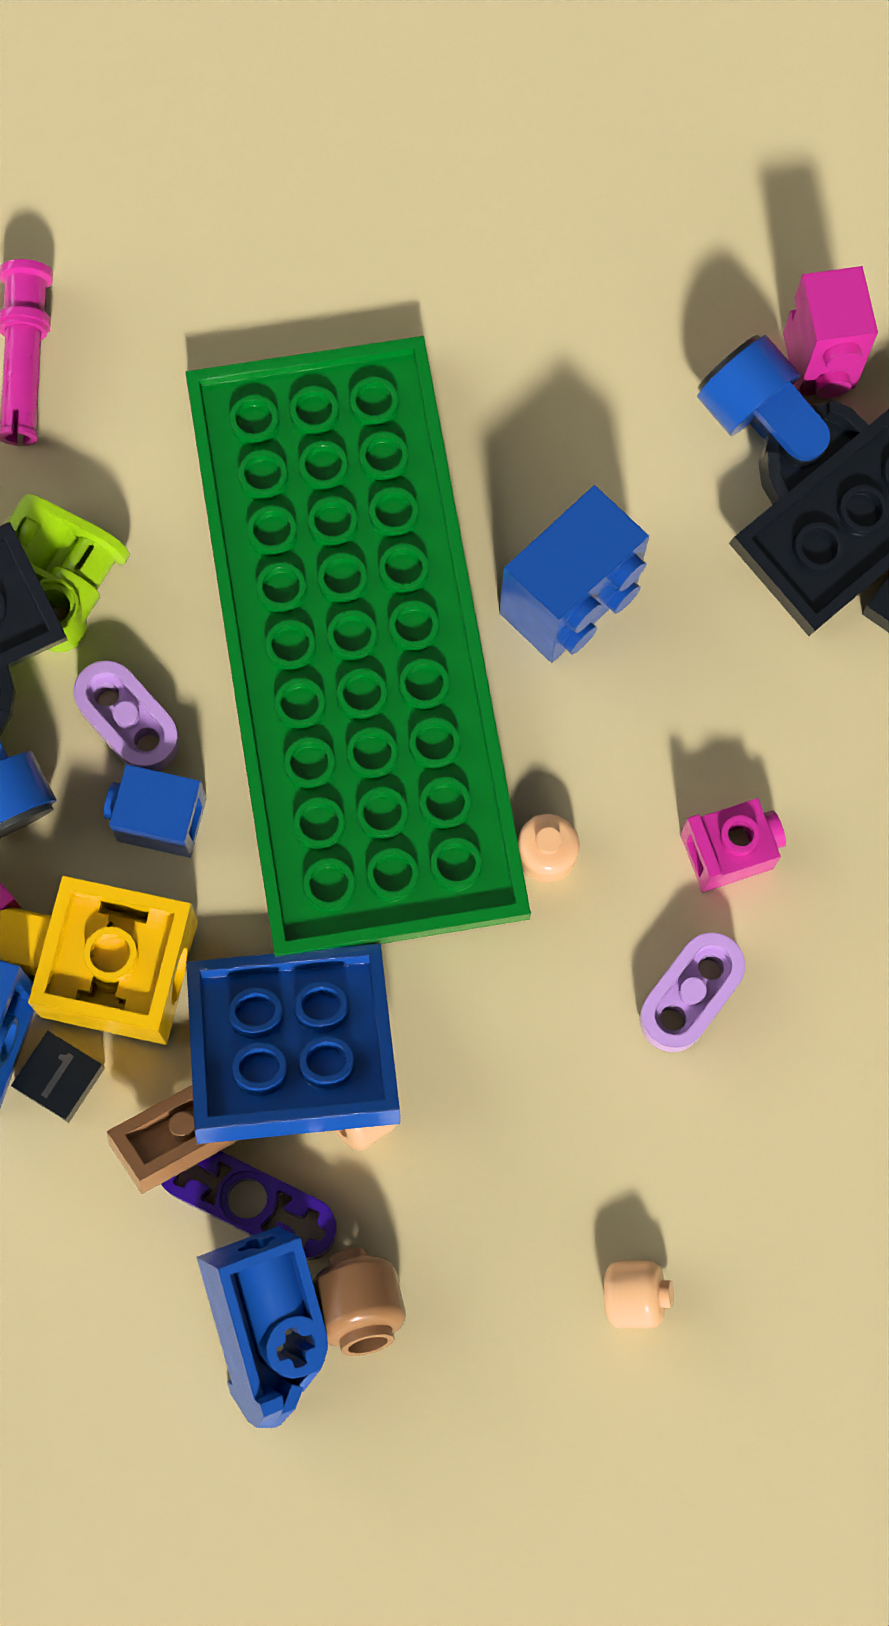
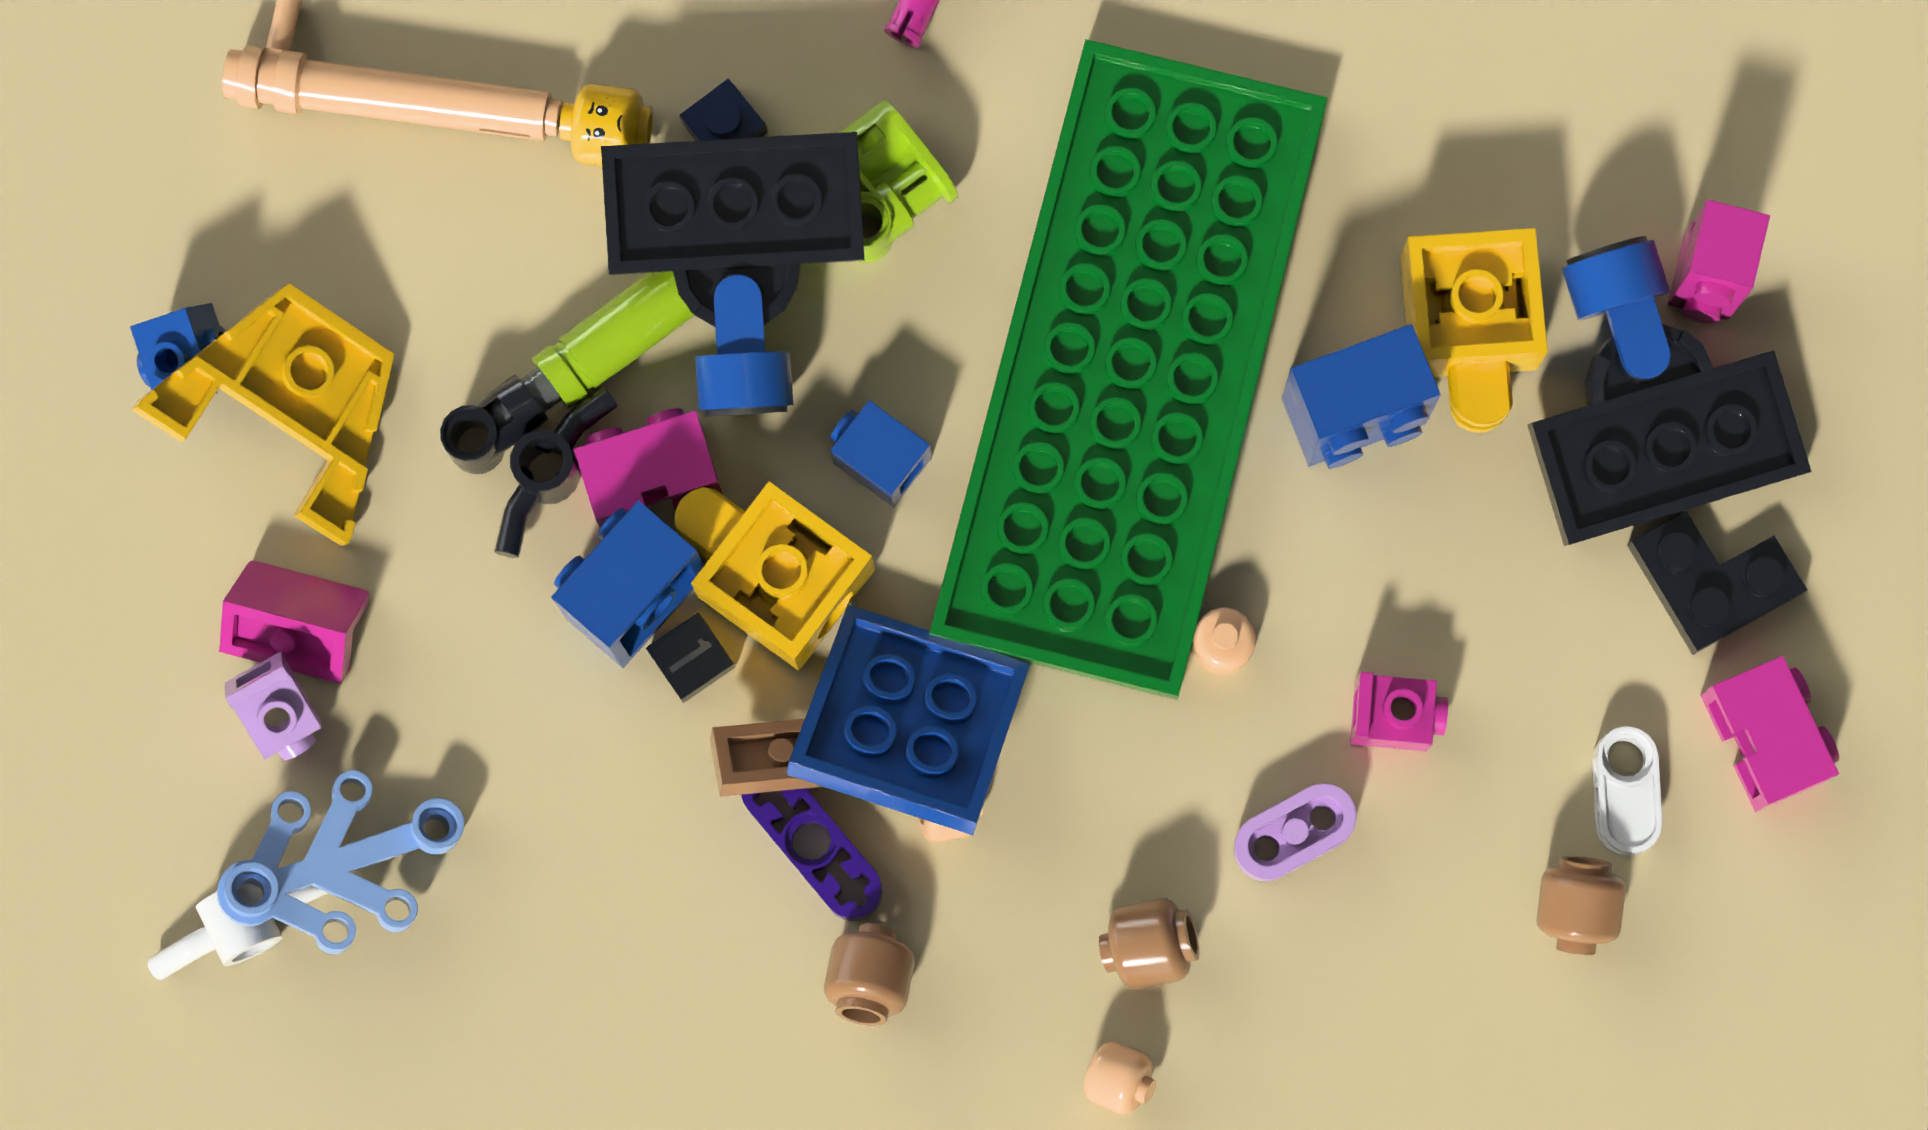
camera: 30 degrees right, 5 degrees up
(128, 719) = (890, 354): lavender plate -> none
(255, 1296) = (781, 929): blue piece -> none
(607, 1154) = (1149, 943): none -> medium nougat head
(659, 459) = (1476, 315): none -> yellow brick

